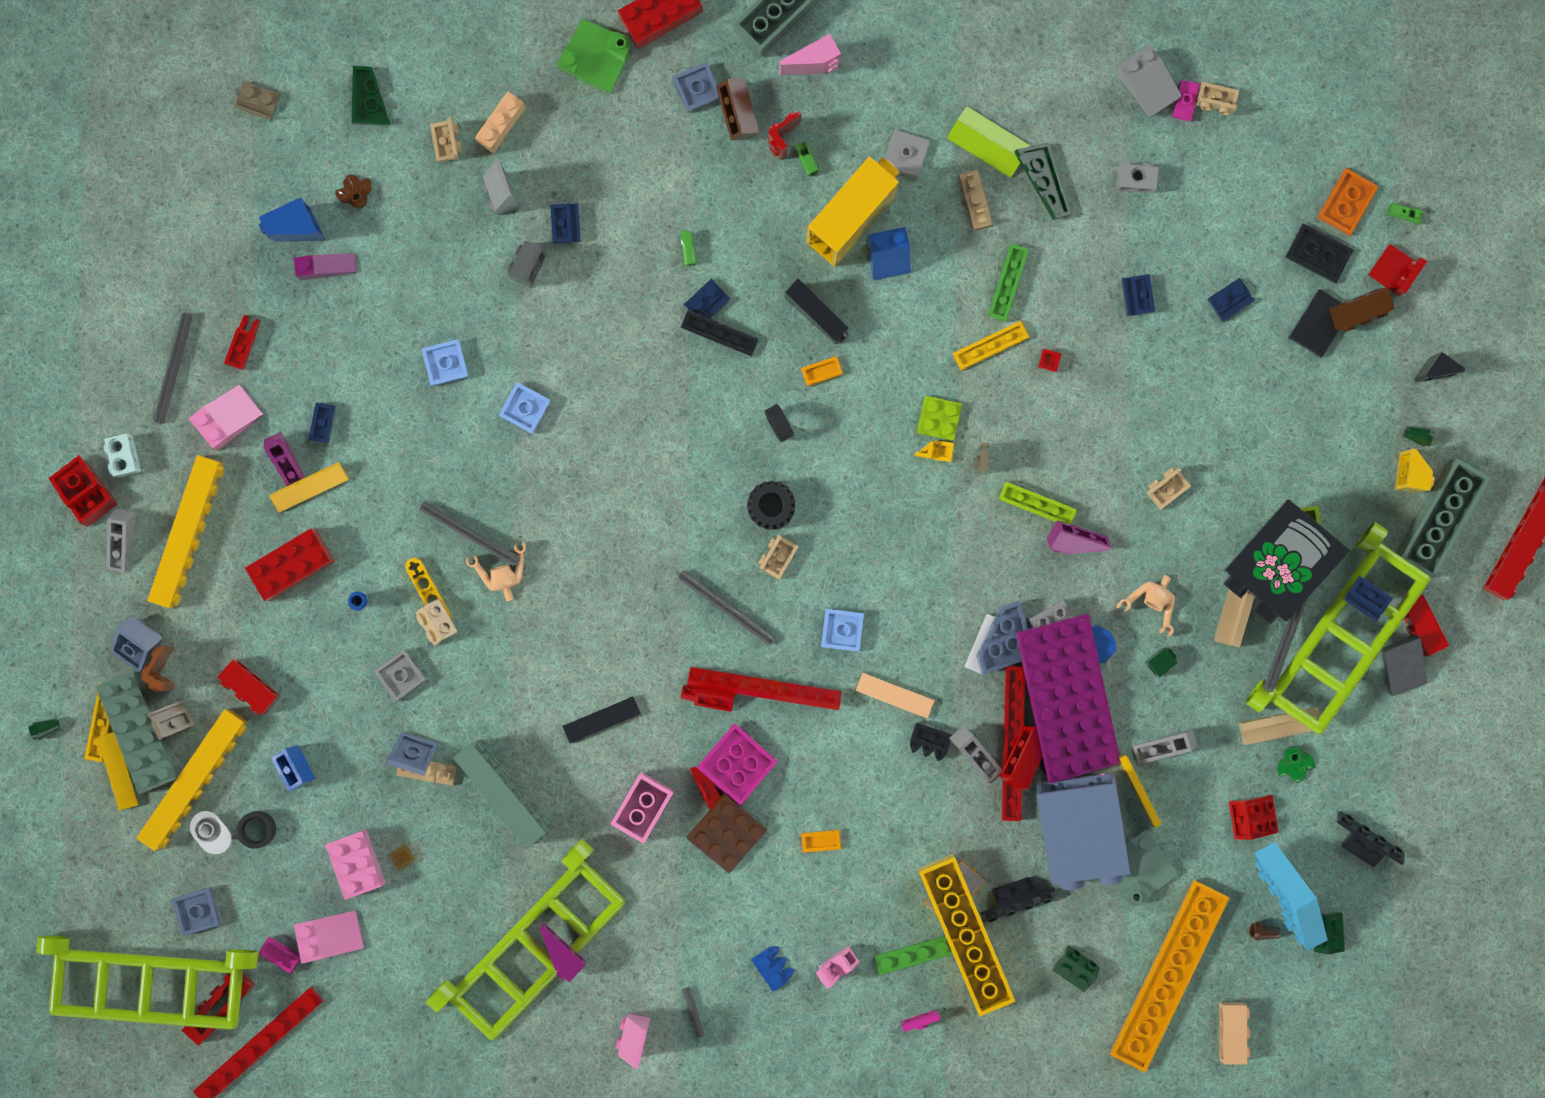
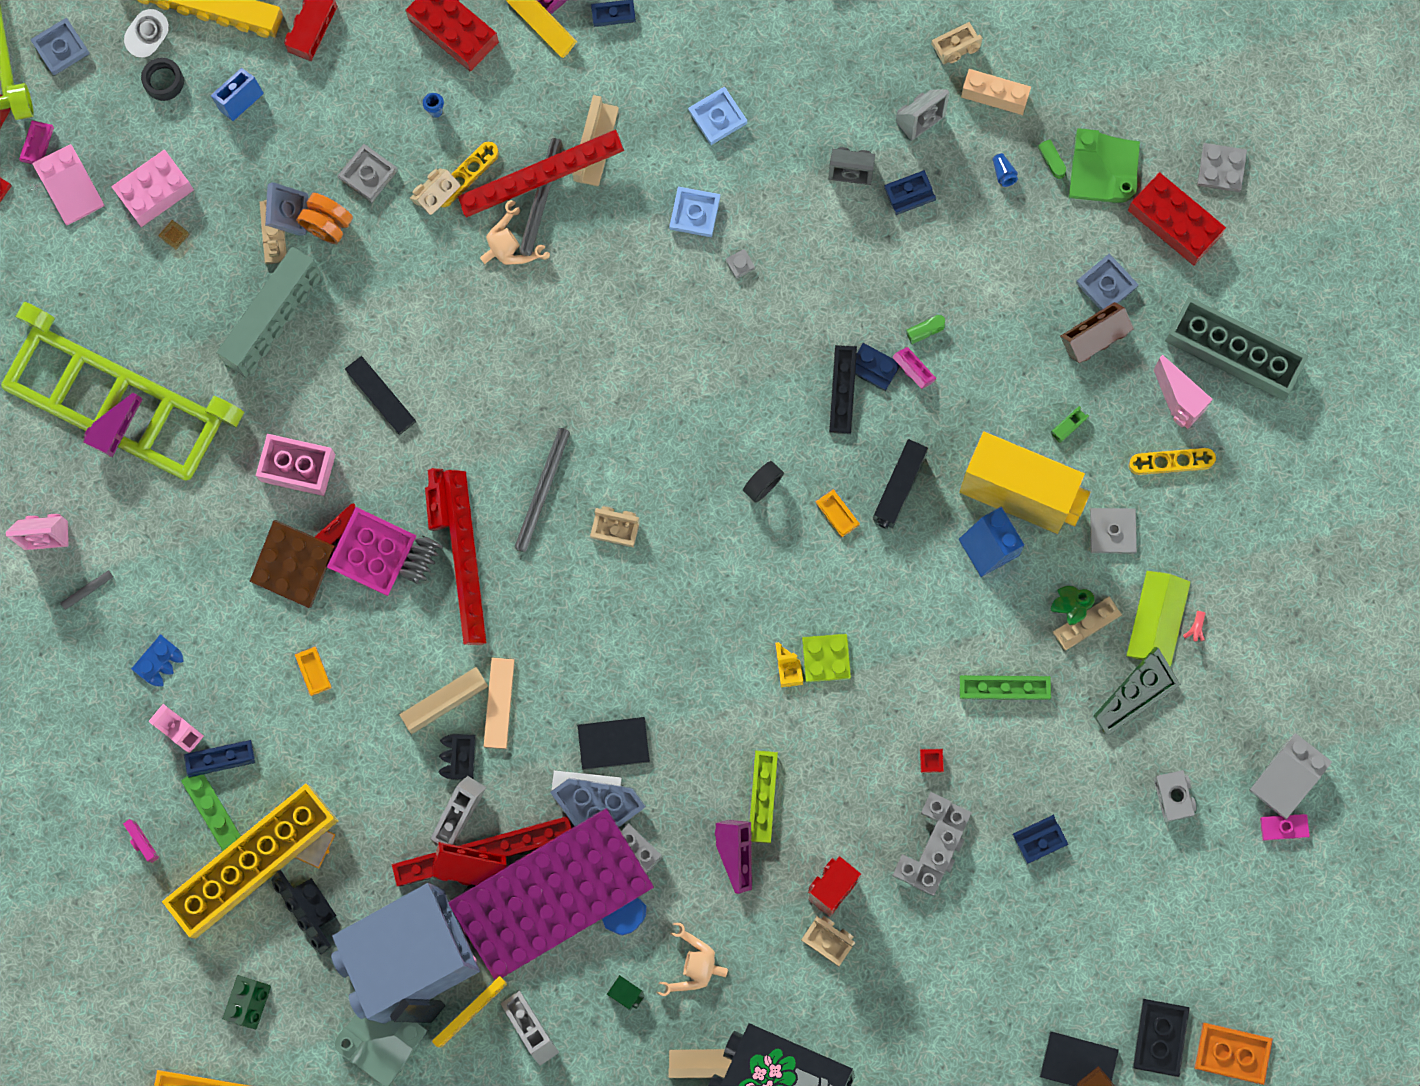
camera: 80 degrees right, 10 degrees down
(434, 725) = (324, 218): none -> orange wheel
(435, 473) = (599, 121): none -> tan panel
(450, 527) = (541, 173): none -> red plate
(571, 138) = (1004, 170): none -> blue cone
(574, 95) = (1052, 159): none -> bright green bar
(582, 384) = (740, 263): none -> light grey plate
(719, 268) = (914, 367): none -> dark pink plate
(756, 725) = (420, 559): none -> dark grey piece
(778, 146) = (1086, 380): red bracket -> none
(783, 517) = (674, 519): black tyre -> none
(842, 630) = (554, 622): light blue plate -> none
(863, 86) = (1172, 464): none -> yellow beam
(871, 938) = (219, 758): none -> dark blue tile
(879, 740) = (443, 700): none -> tan panel
(956, 612) = (613, 743): none -> black tile
(957, 208) = (1070, 603): none -> green plate
(980, 462) = (791, 715): dark tan plate -> none
(990, 345) = (927, 690): yellow tile -> none
(1006, 113) = (1196, 629): none -> coral bar
(1121, 376) = (940, 847): none -> light grey bracket
(1130, 832) = (417, 1011): none -> black tile
(1134, 469) = (834, 886): none -> red brick
(1217, 98) = (1300, 861): tan bracket -> none
(1230, 299) = (1071, 949): dark blue plate -> none

